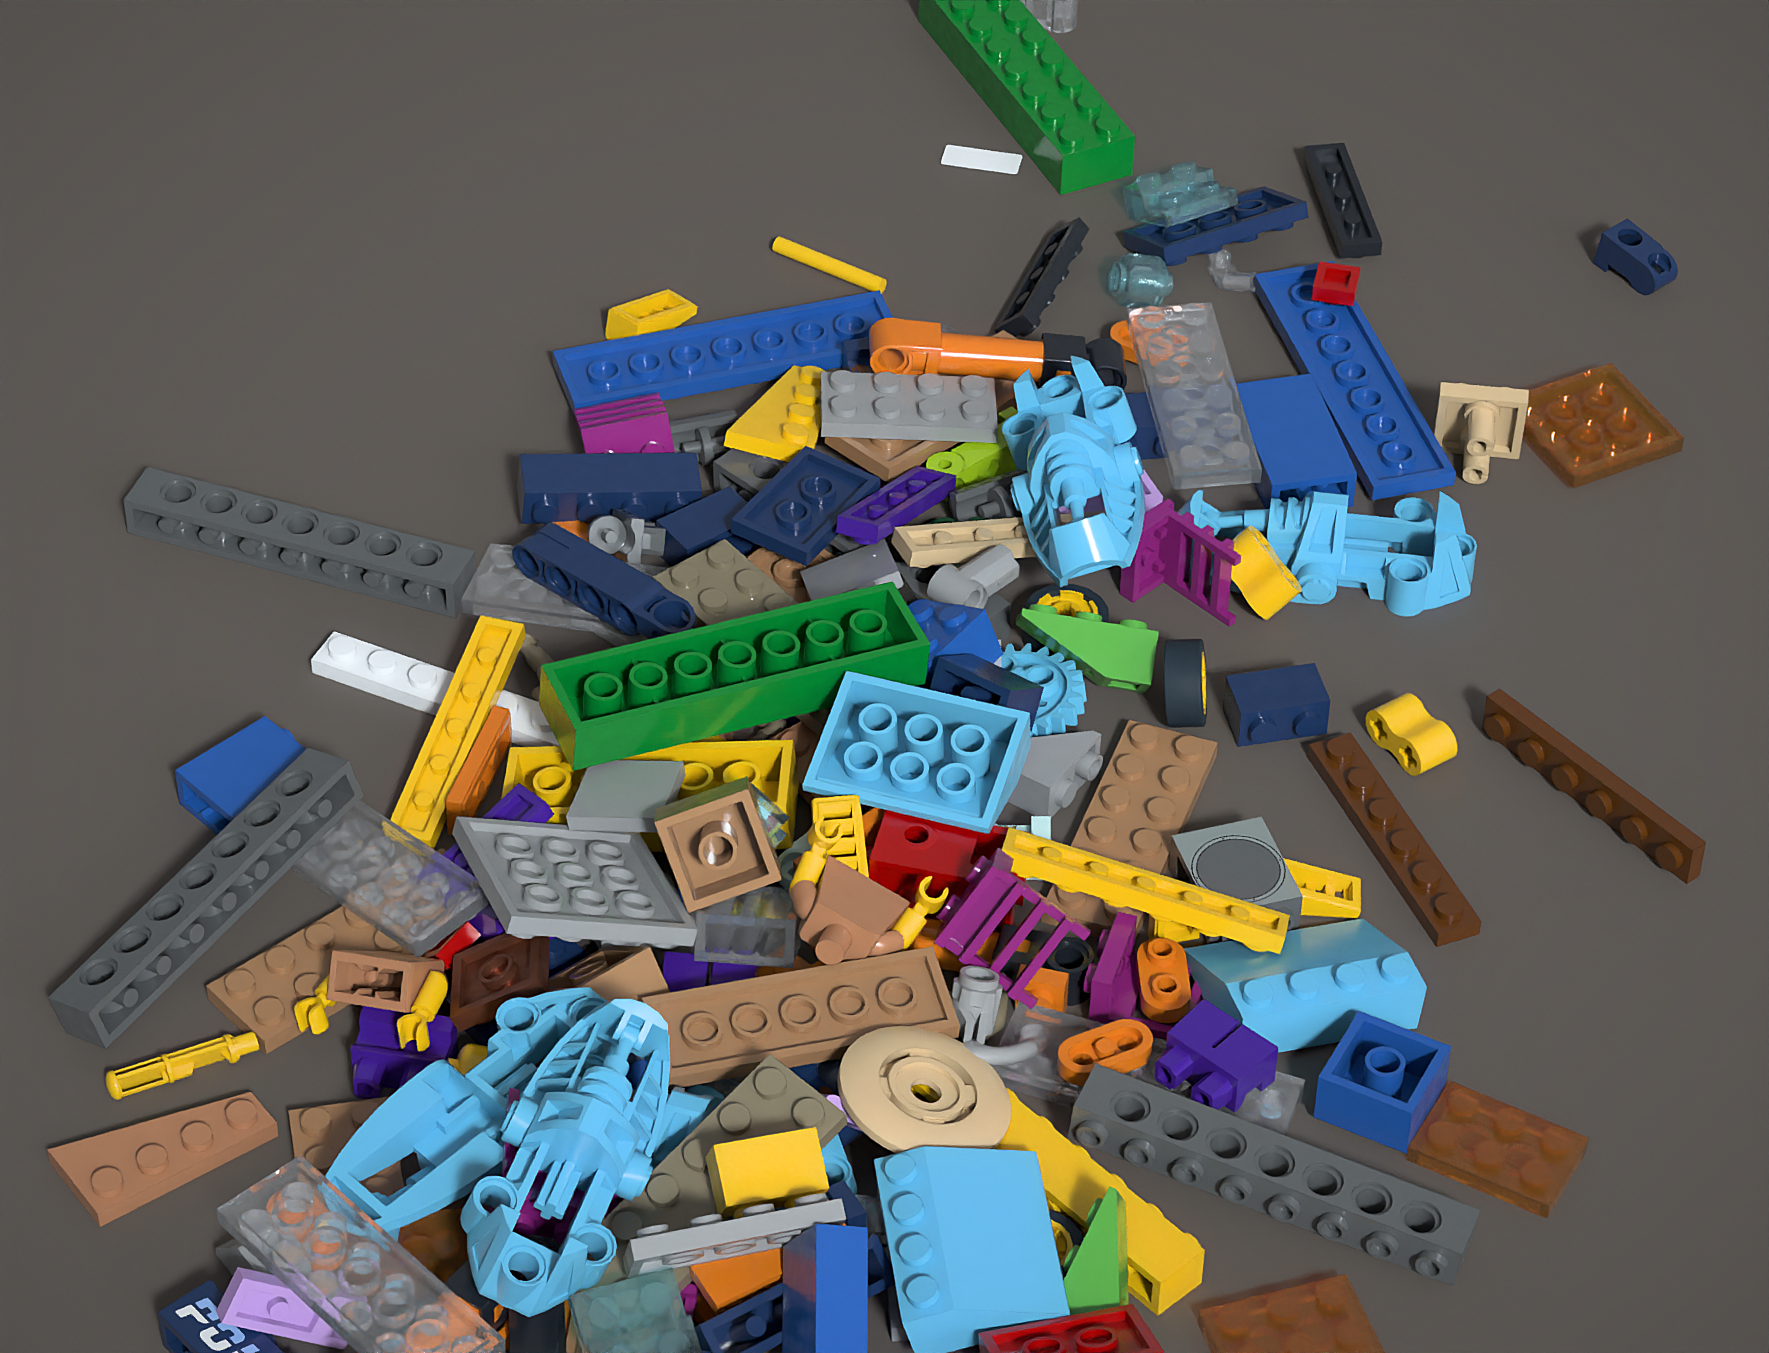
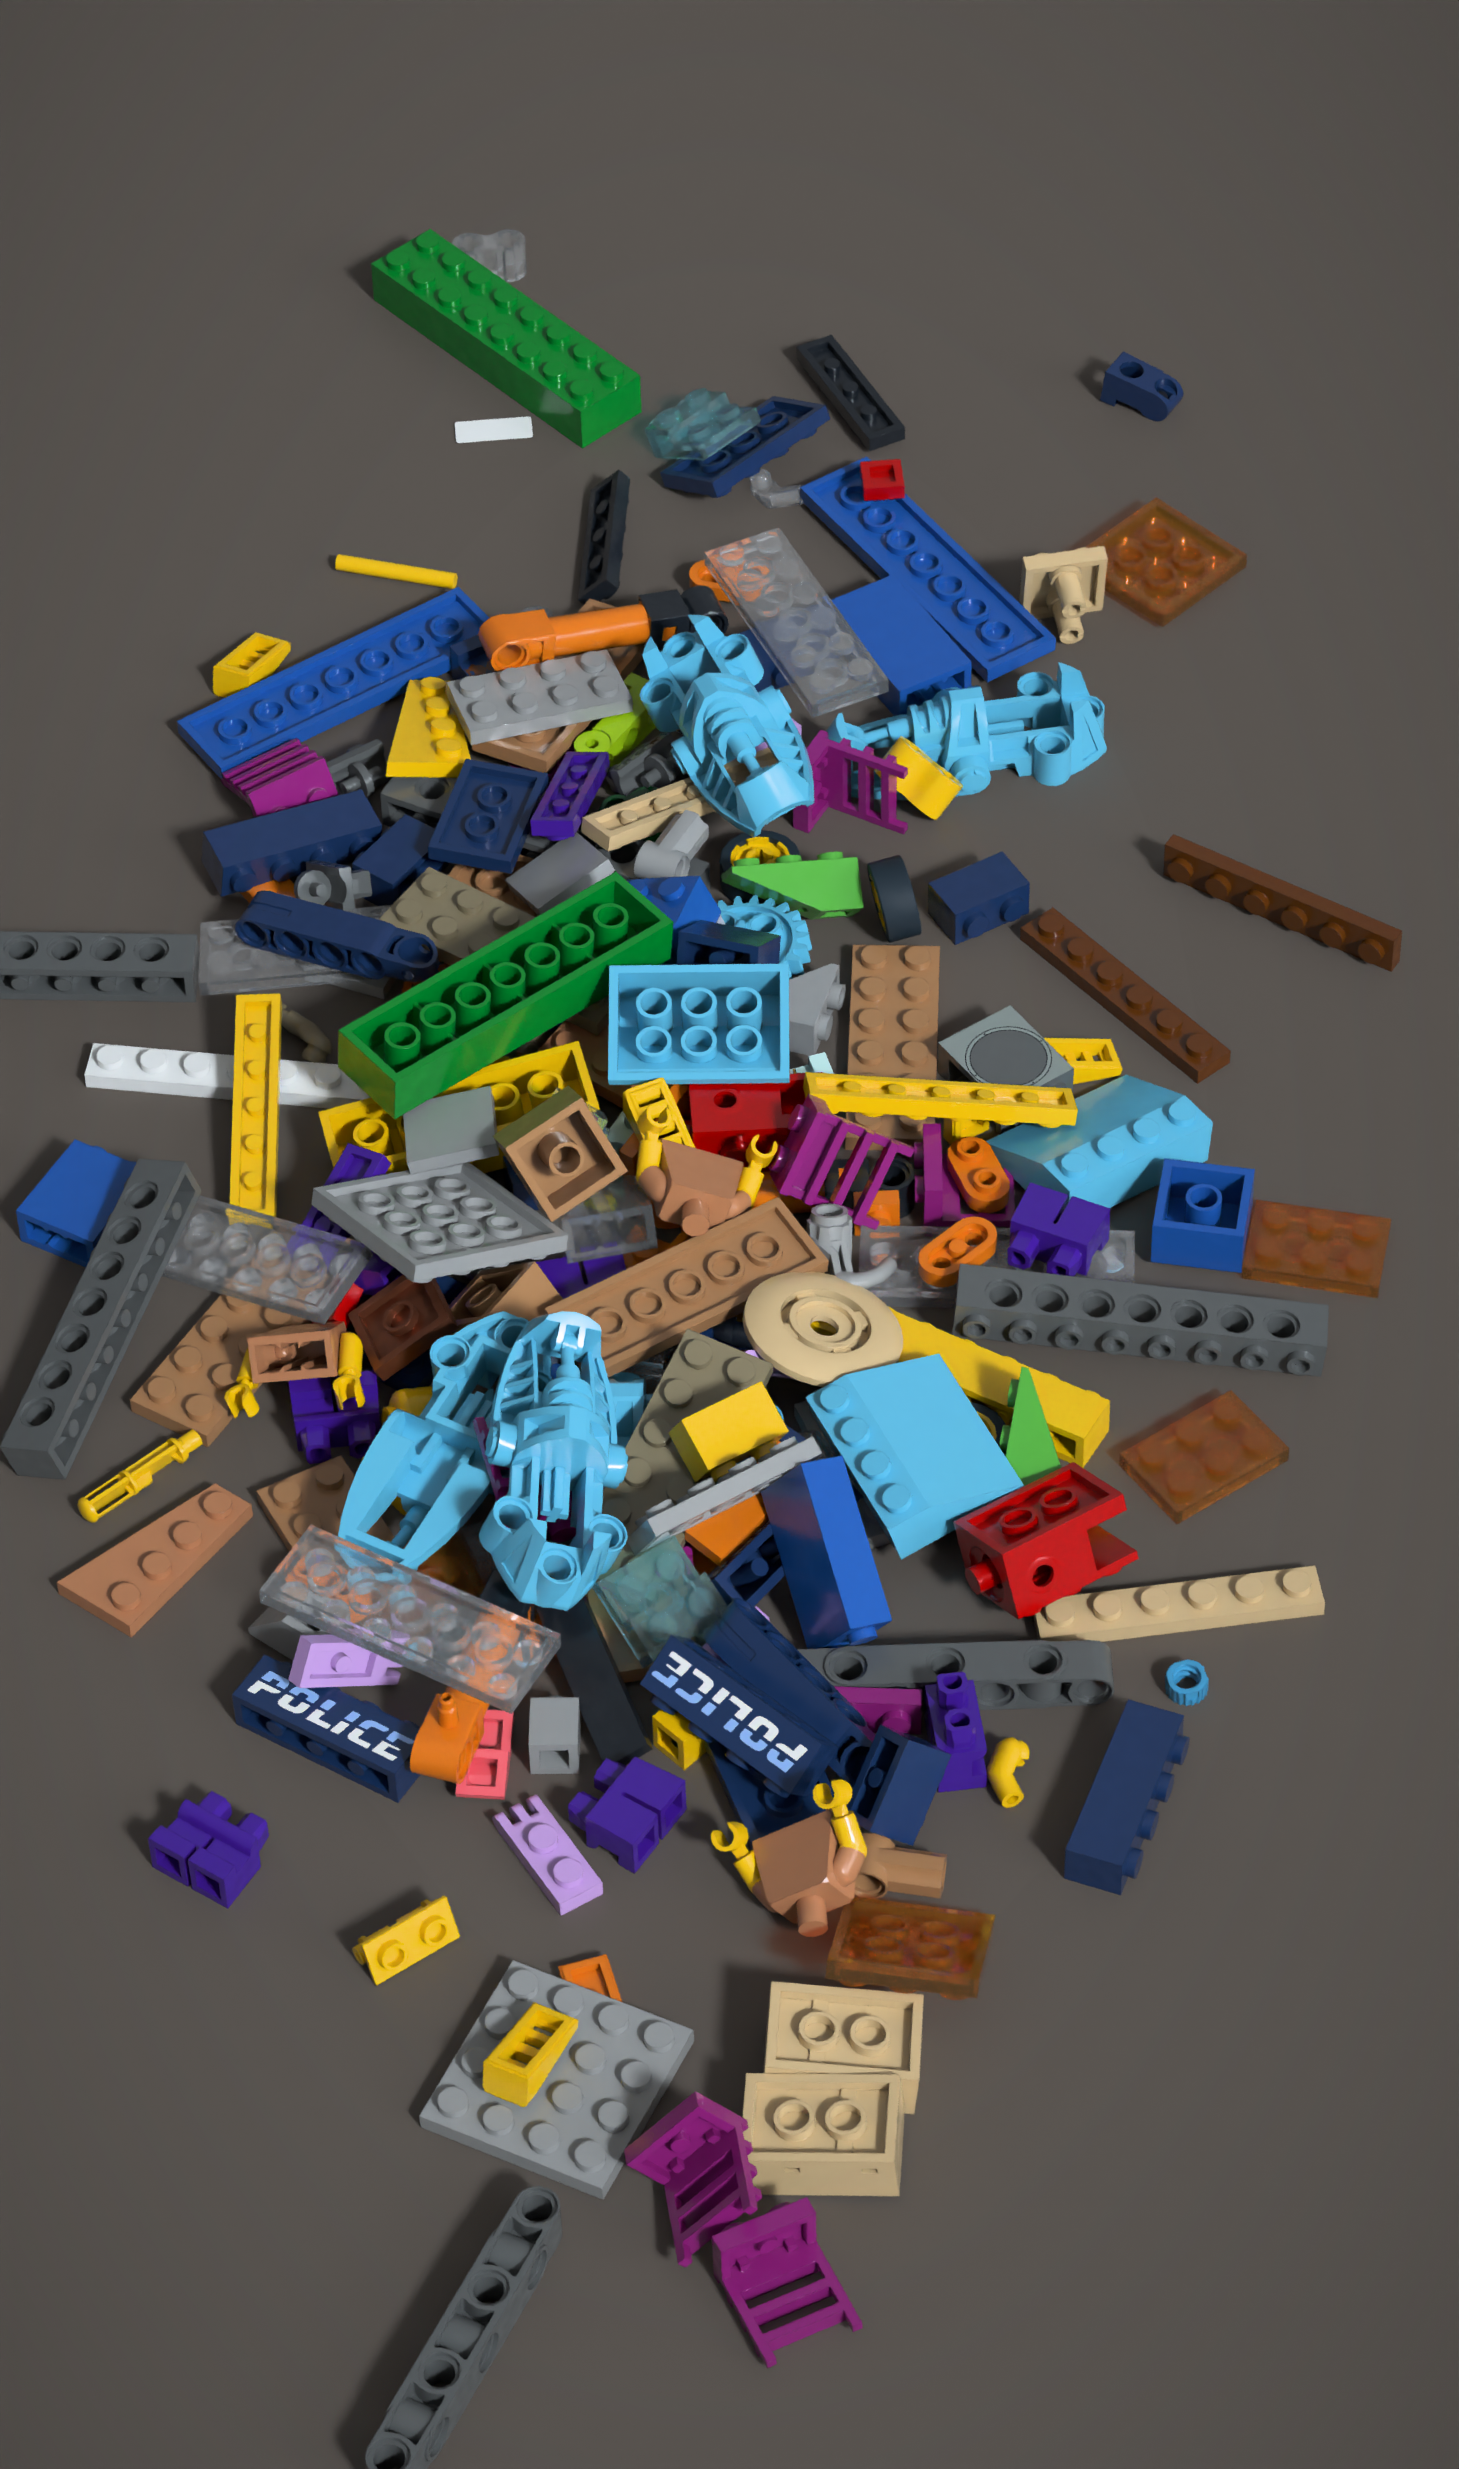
camera: 15 degrees left, 5 degrees up
(480, 767) = (289, 1141): orange tile -> none
(1140, 280) = (696, 519): clear light blue head -> none
(1411, 734) = (1107, 895): yellow axle -> none

